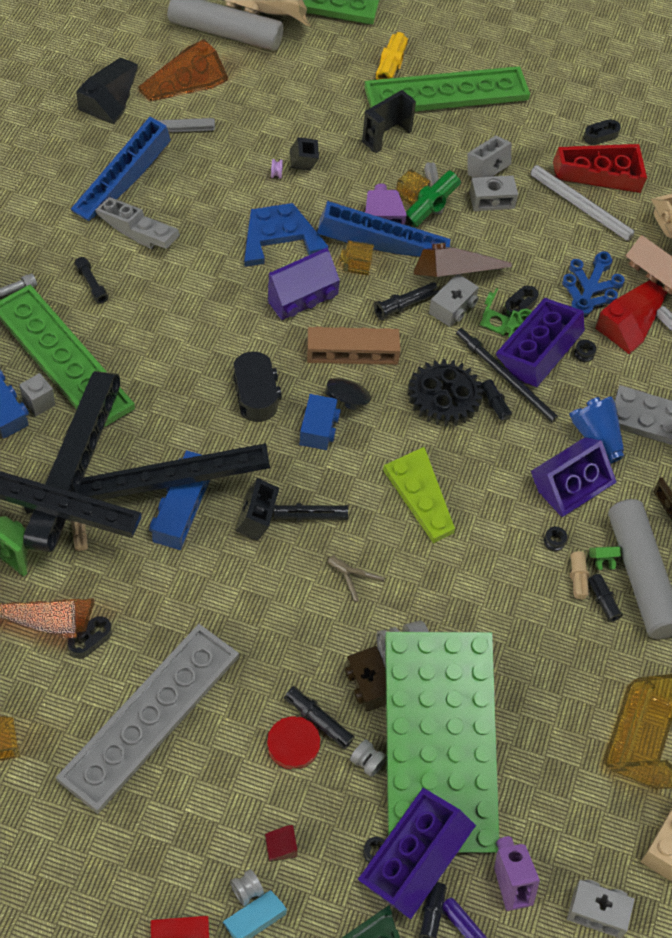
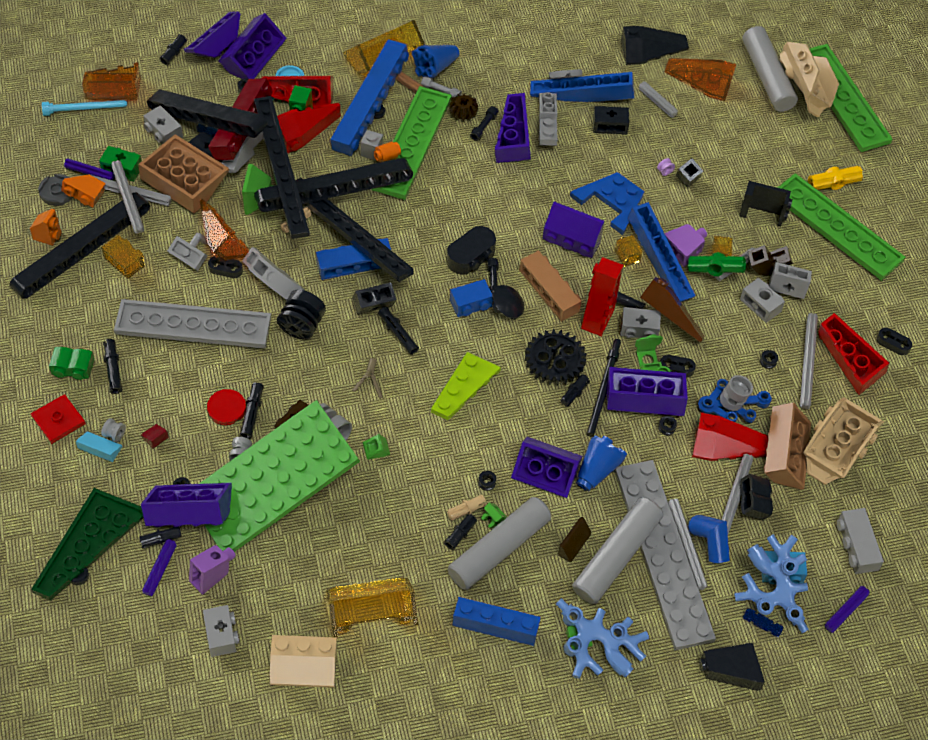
camera: 60 degrees right, 0 degrees up
(39, 665) = (188, 252): none -> light grey plate
(55, 284) = (463, 107): none -> dark brown gear
(66, 384) = (387, 151): none -> orange brick
(92, 173) = (565, 74): none -> light grey tile
(109, 887) = (71, 363): none -> green brick
(129, 257) = (513, 135): none -> dark purple wedge
(137, 836) = (111, 359): none -> black pin
(145, 593) = (270, 274): none -> light grey slope
(181, 175) = (611, 120): none -> black brick
(230, 591) = (301, 314): none -> black wheel
(288, 380) = (493, 267): none -> black bar
(417, 303) = (602, 296): none -> red wedge
(447, 619) = (376, 447): none -> bright green slope
(455, 156) = (764, 261): none -> dark brown brick
(560, 235) = (767, 364): none -> black bush
(596, 272) = (736, 393): none -> light grey wheel

